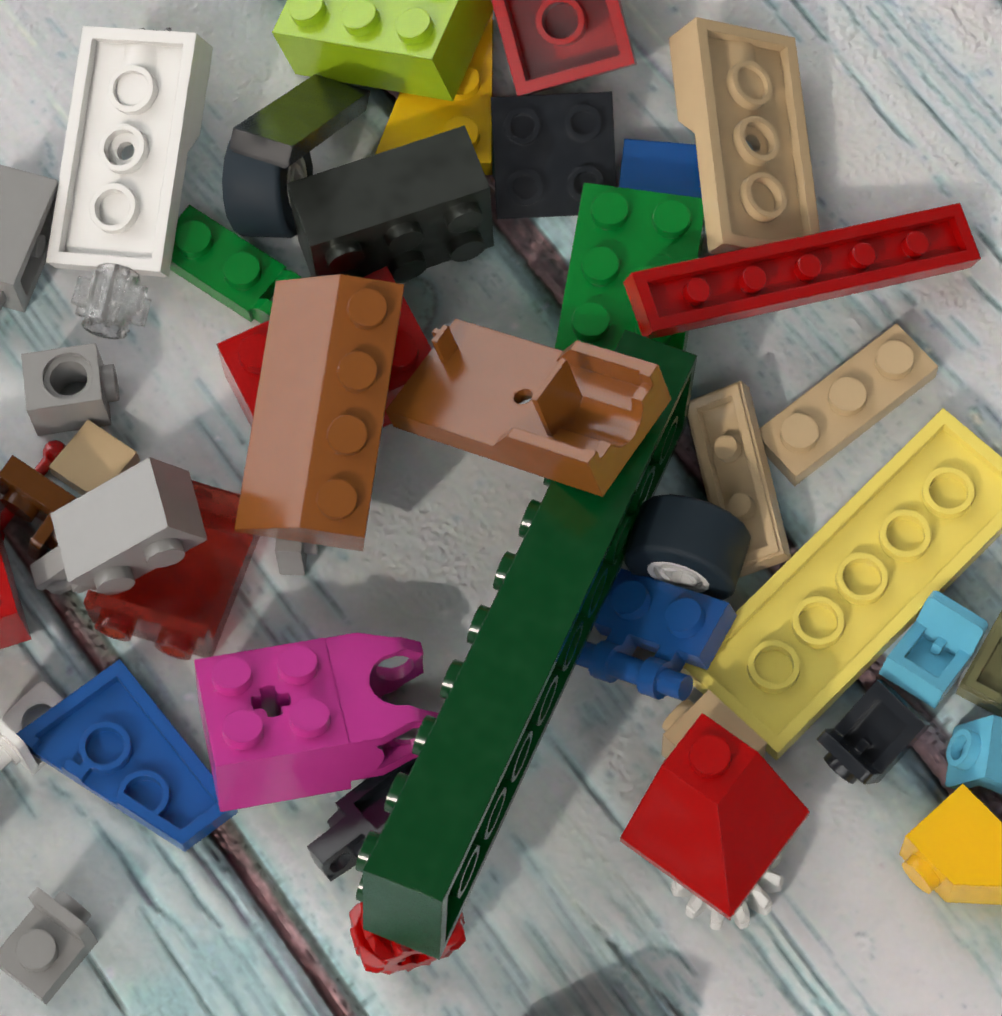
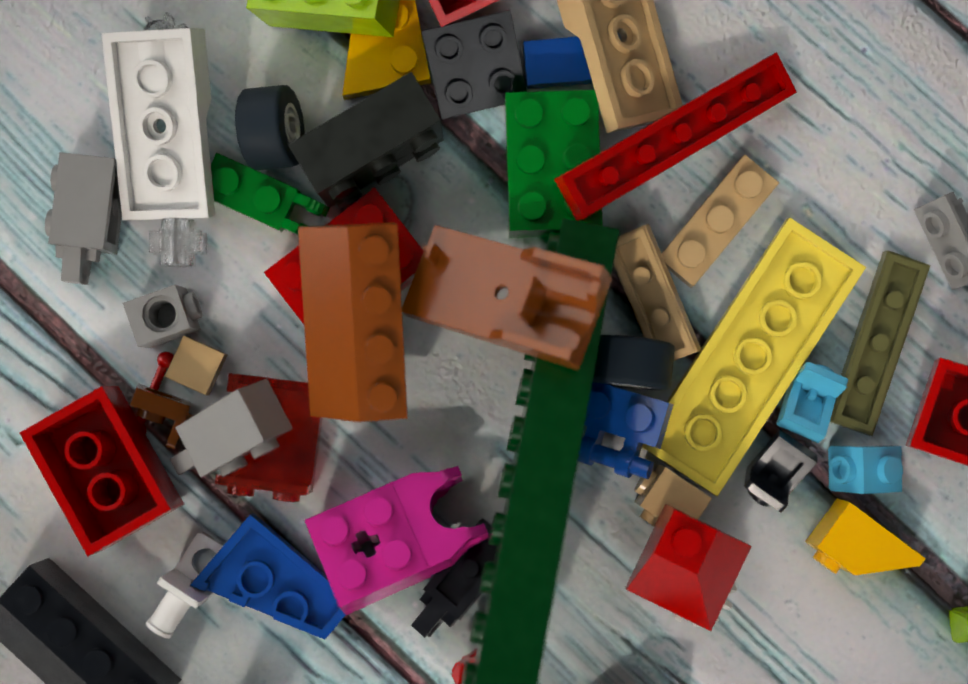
camera: 15 degrees left, 20 degrees up
(298, 121) = (284, 86): tile -> none

